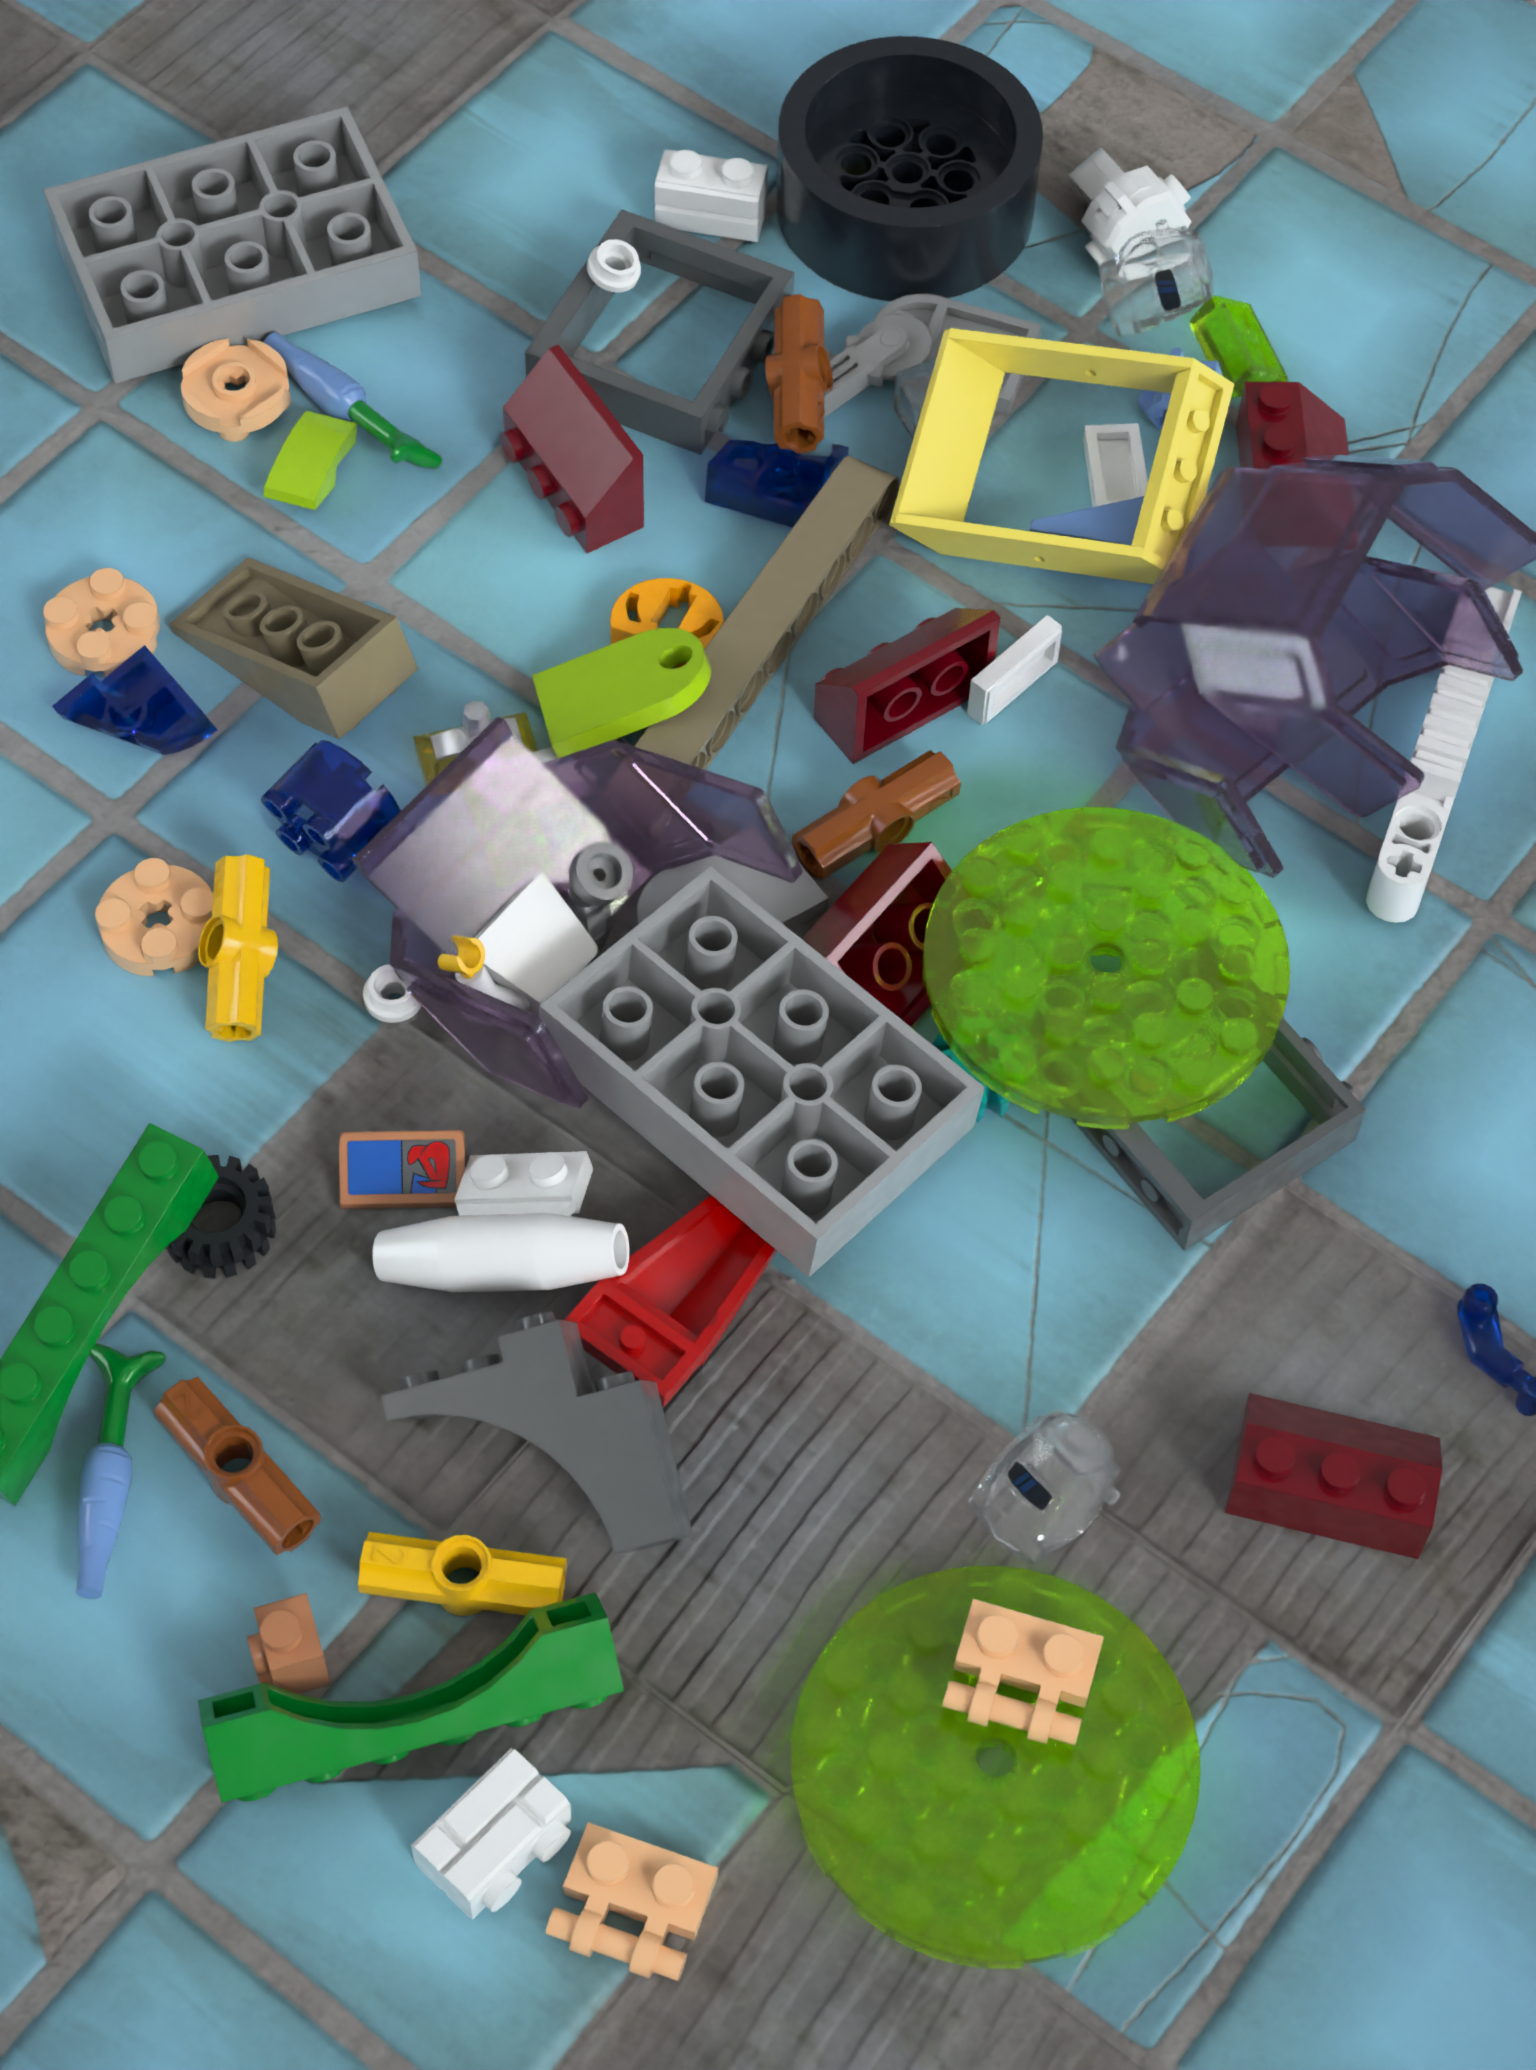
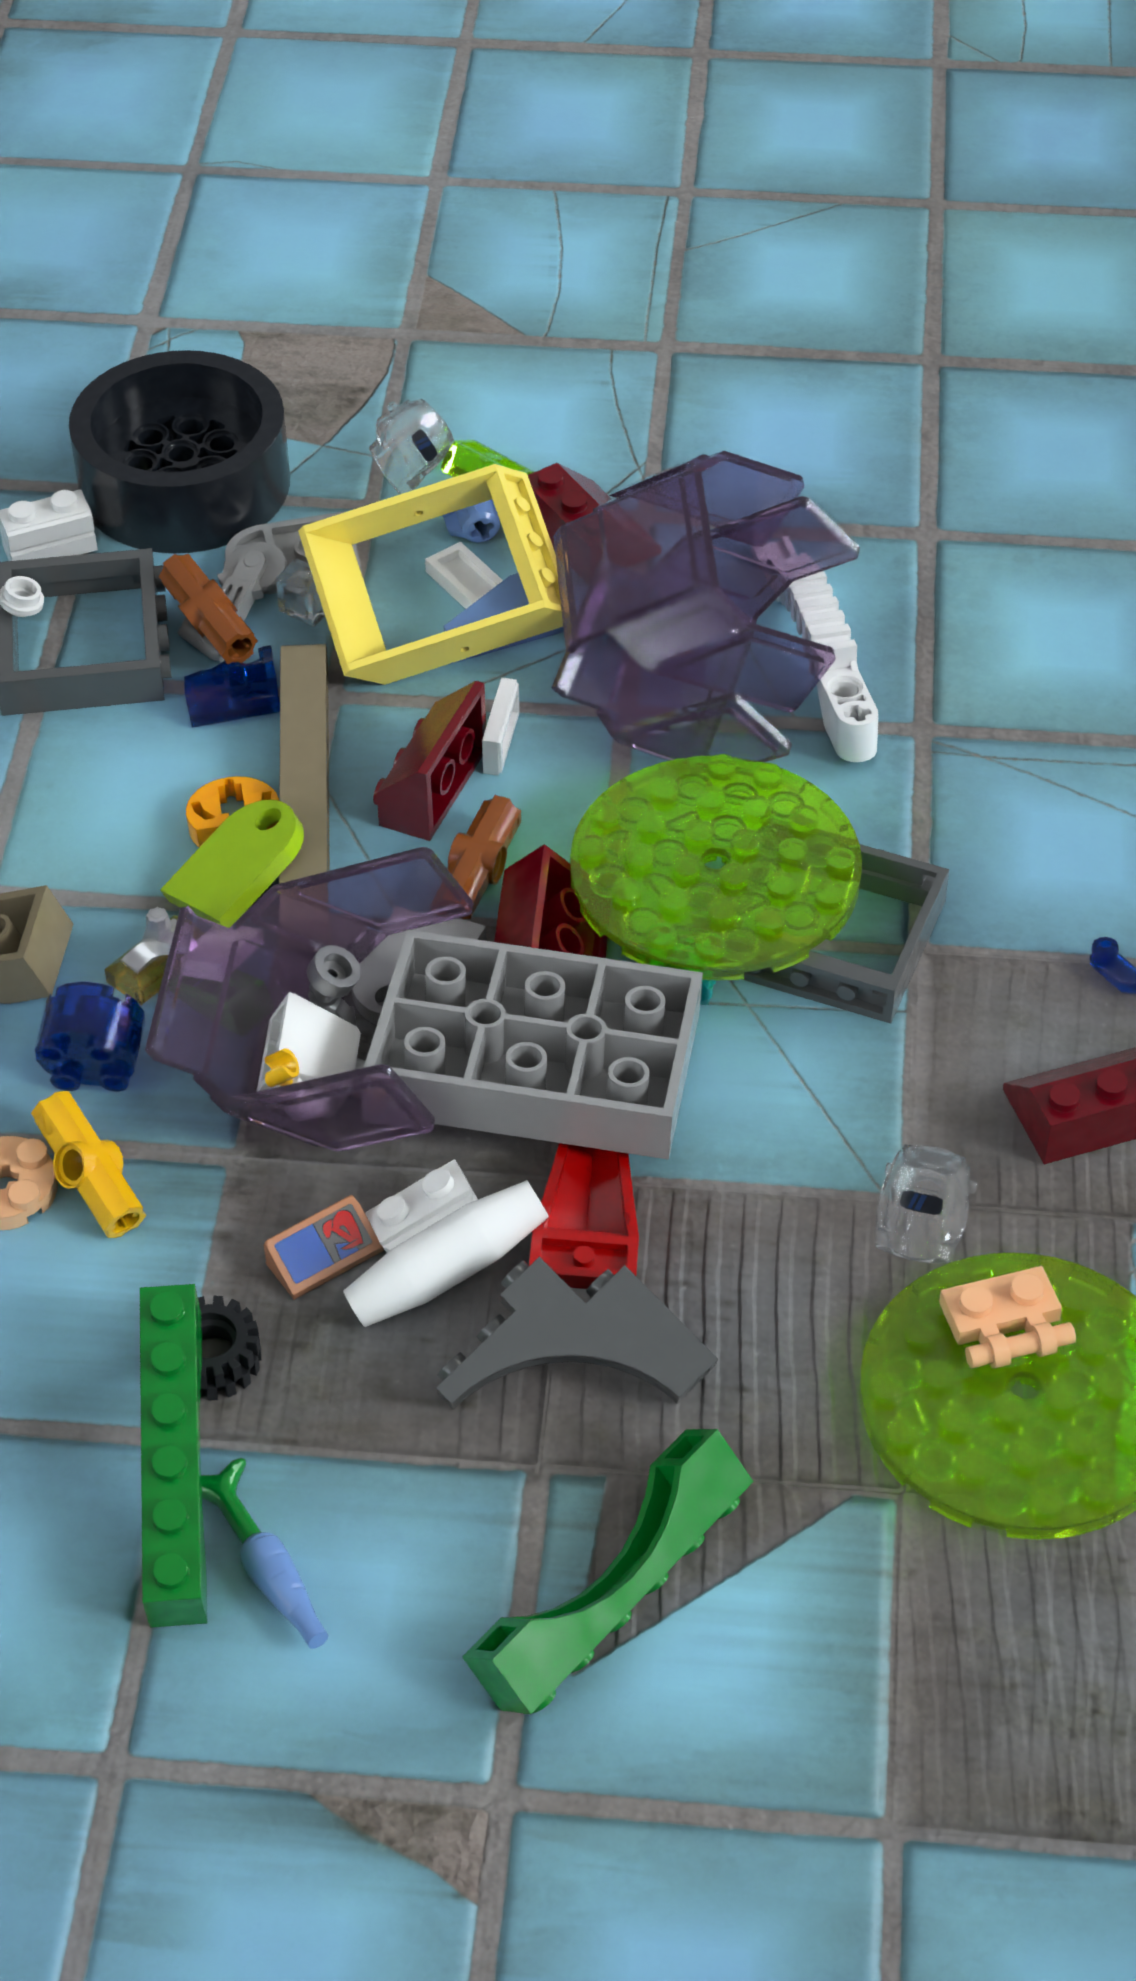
camera: 30 degrees left, 10 degrees down
(260, 1490) = (330, 1488): dark orange piece -> none
(288, 1646) = (494, 1587): nougat brick -> none
(378, 986) = (223, 1129): white plate -> none
(420, 1568) = (553, 1488): yellow piece -> none
(494, 1835) = (734, 1625): white brick -> none
(575, 453) = (83, 728): dark red slope -> none
(639, 1883) = (856, 1601): light nougat plate -> none
(1124, 203) = (347, 411): white piece -> none

